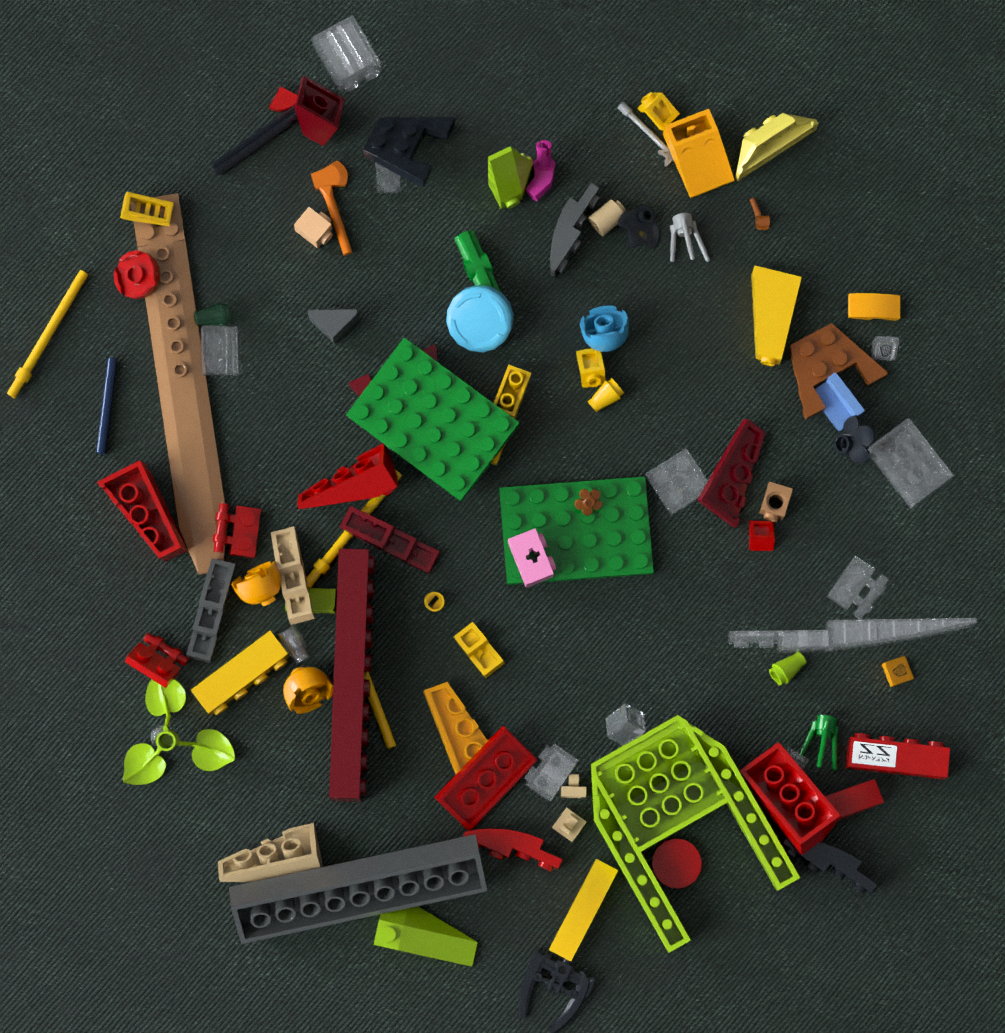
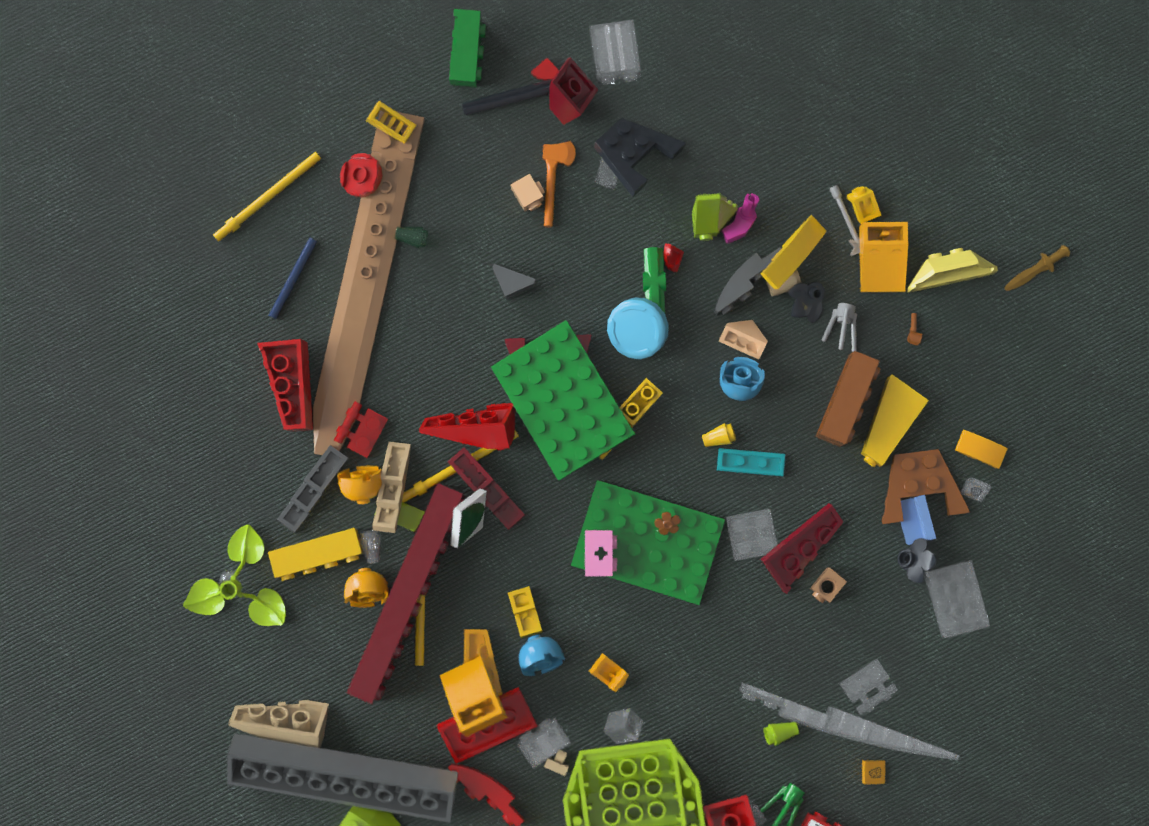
camera: 25 degrees right, 5 degrees up
(153, 664) = (245, 517): red plate -> none
(194, 106) = (466, 48): none -> green wedge
(219, 350) = (406, 268): clear plate -> none
(383, 573) = (468, 518): none -> tile
(437, 605) = (505, 560): yellow hinge -> none
(460, 751) = (472, 697): none -> light orange slope
(486, 235) = (672, 257): none -> red tile
(511, 686) = (540, 654): none -> dark azure cylinder
(569, 824) = (542, 791): tan tile -> none
(589, 676) = (609, 673): none -> light orange bracket
(591, 288) = (744, 337): none -> light nougat slope
(591, 367) = (716, 407): yellow bracket -> none
(607, 183) = (793, 252): none -> yellow slope
(648, 410) = (751, 462): none -> teal tile
(719, 306) = (847, 399): none -> dark orange brick
(761, 535) = (804, 608): red slope -> none
(862, 100) = (1044, 264): none -> pearl gold sword

